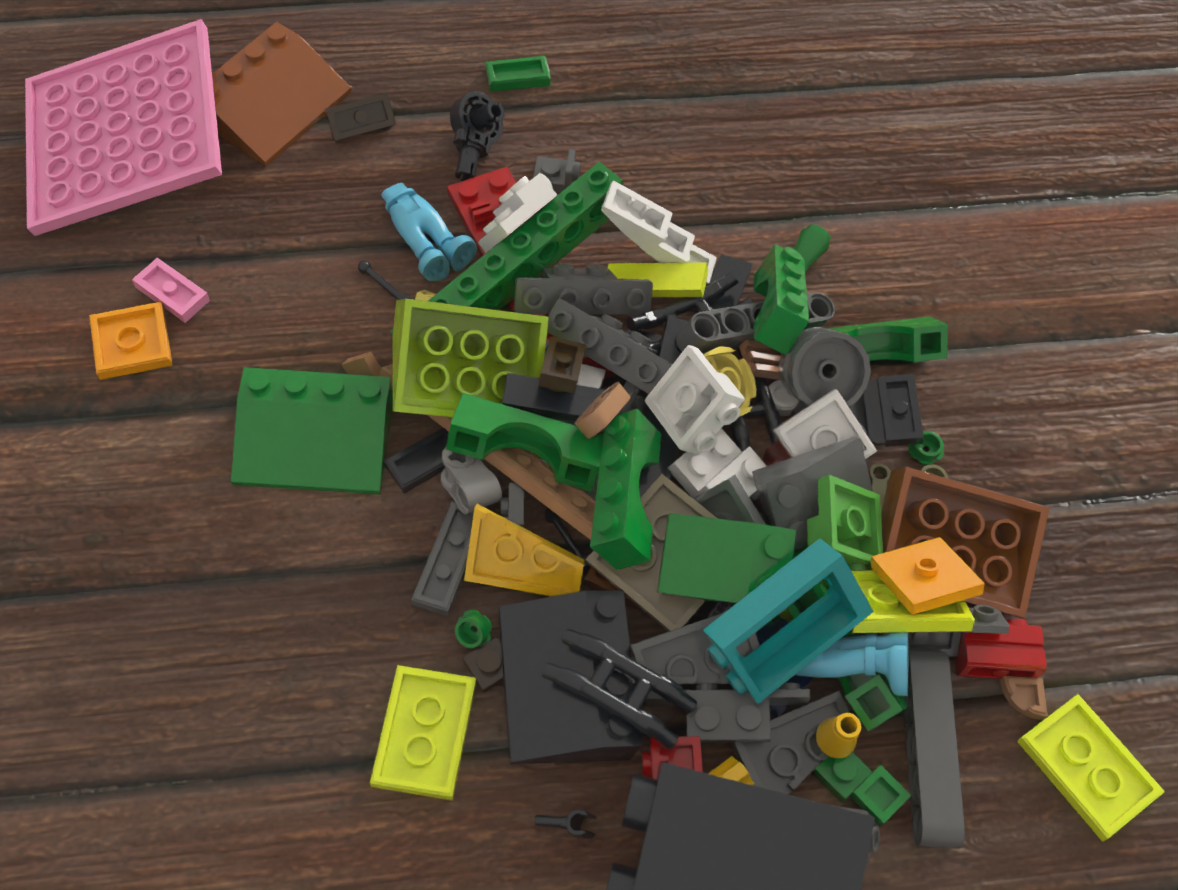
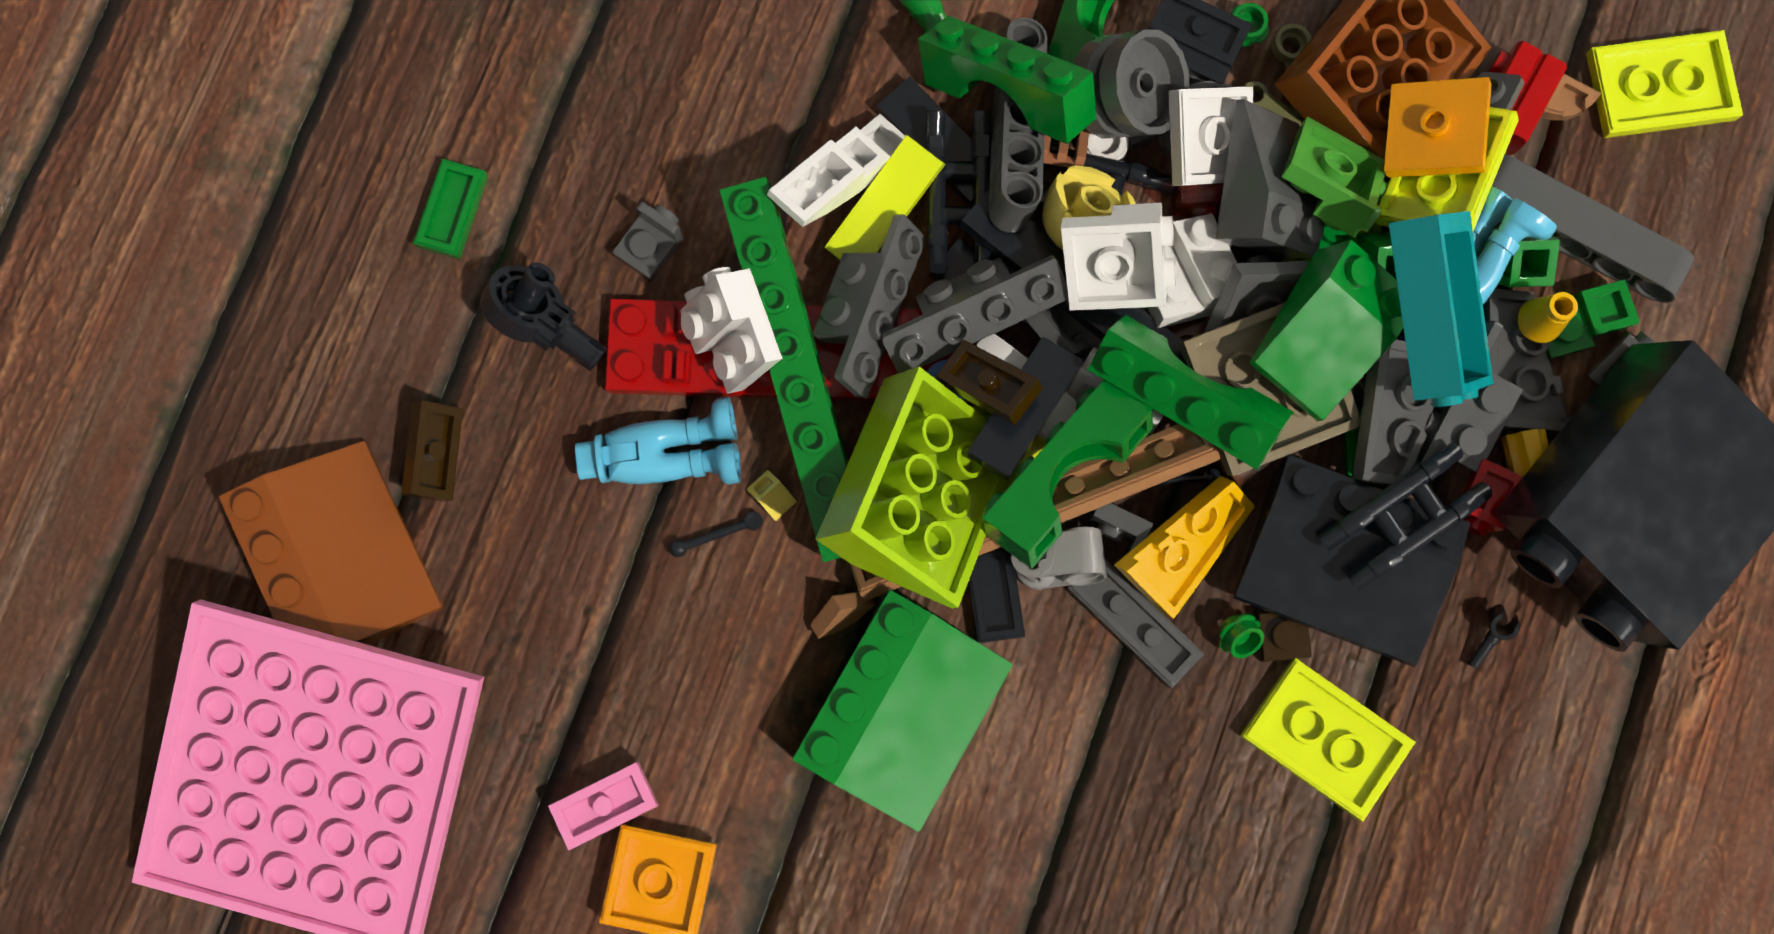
camera: 60 degrees left, 20 degrees up
(602, 410) = (1083, 368): medium nougat beam -> none

